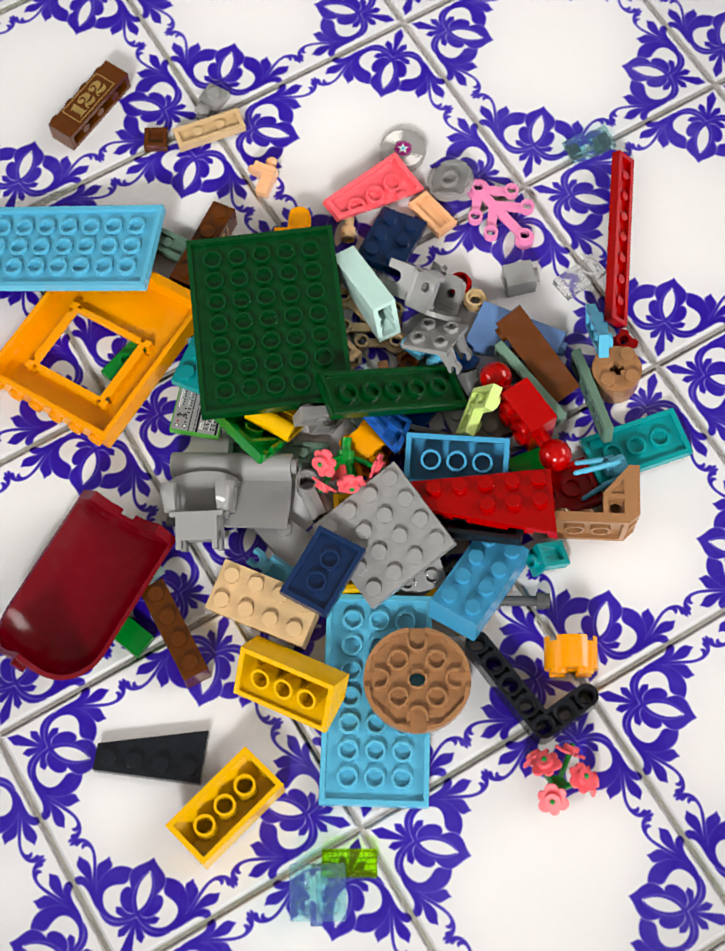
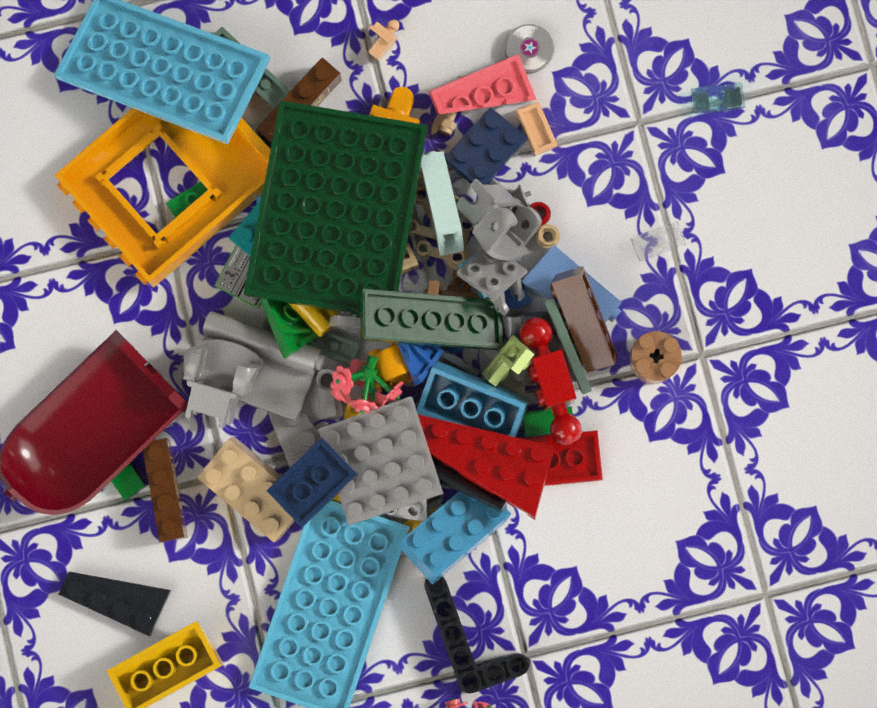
camera: 15 degrees right, 15 degrees up
(273, 567) = (271, 454): medium azure plate -> none
(290, 683) = (255, 570): yellow slope -> none
(417, 707) = (343, 610): medium nougat plate -> none
(450, 180) = (565, 99): light grey tile -> none
(500, 209) = (602, 144): bright pink plant -> none
(519, 278) = (598, 227): light grey brick -> none
(541, 601) = (508, 559): dark grey bar -> none
(547, 557) = (521, 523): teal bracket -> none
(570, 655) = (516, 623): light orange brick -> none
(591, 396) = (624, 374): sand green tile -> none
(598, 330) = (652, 312): medium azure plate -> none
(612, 466) = (619, 453): medium azure plant -> none
(613, 519) = (614, 489): medium nougat bracket -> none
(619, 240) = (710, 213): red plate -> none
(624, 336) = (682, 327): red plate -> none
(643, 442) = (649, 435): teal plate -> none

